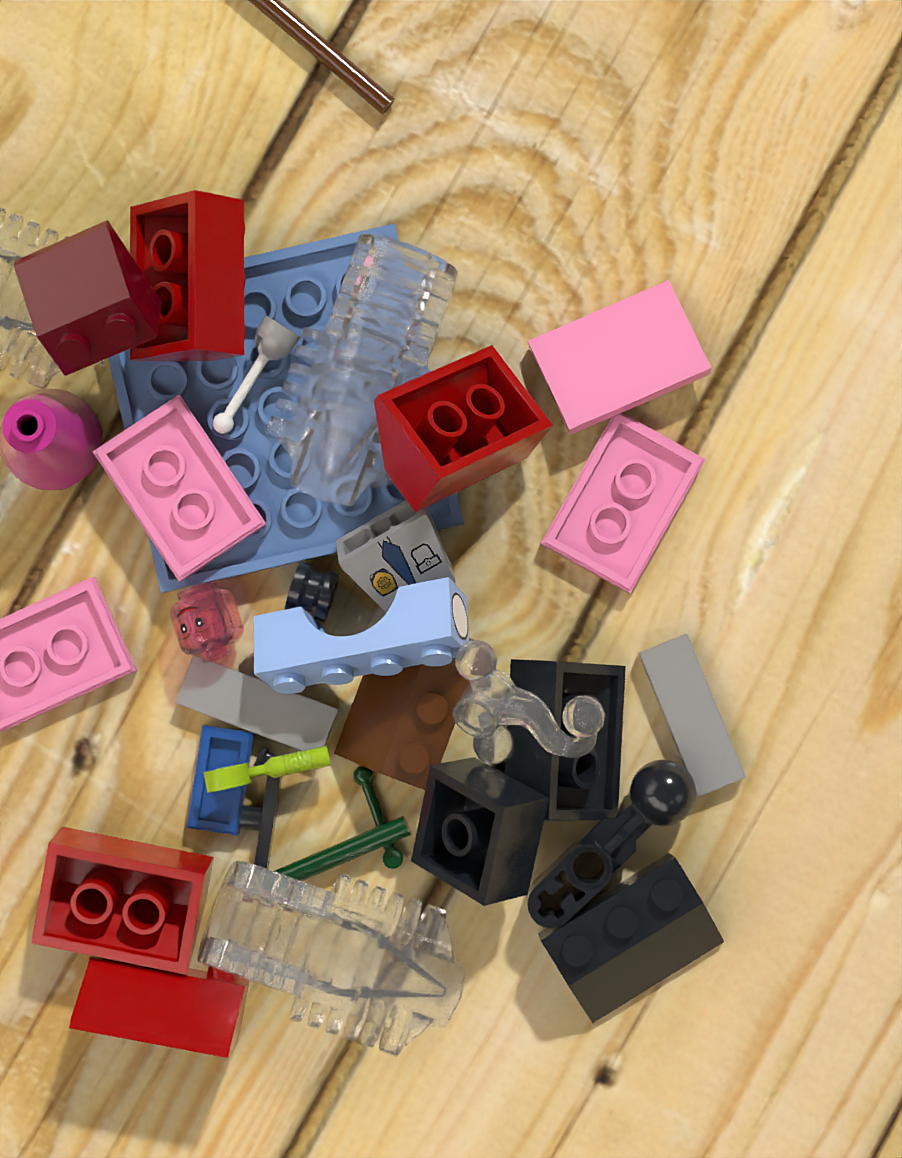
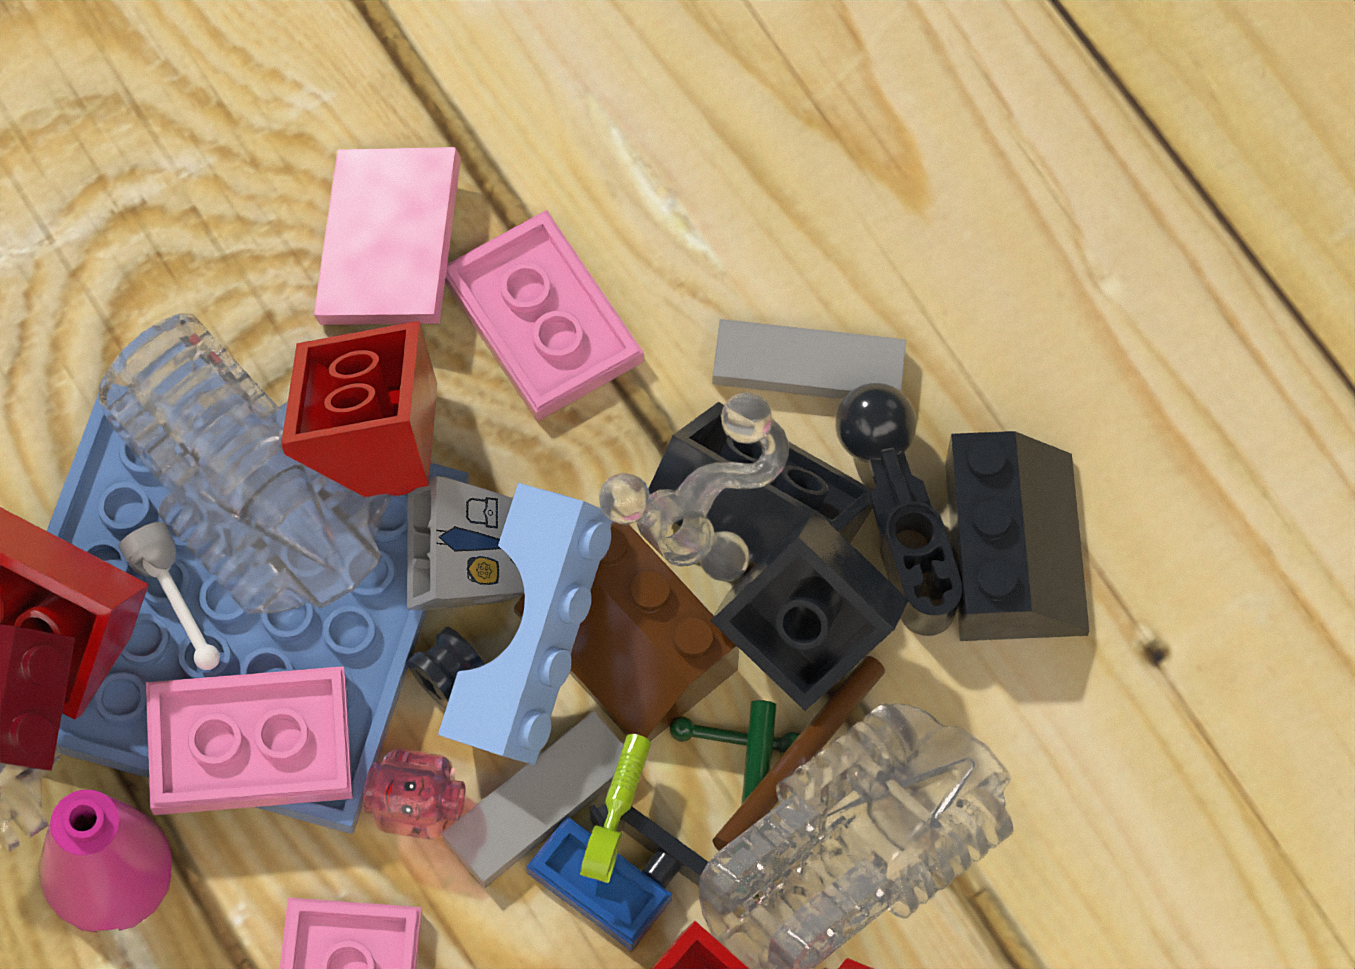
camera: 60 degrees left, 20 degrees down
(359, 869) = (803, 749): none -> reddish brown bar

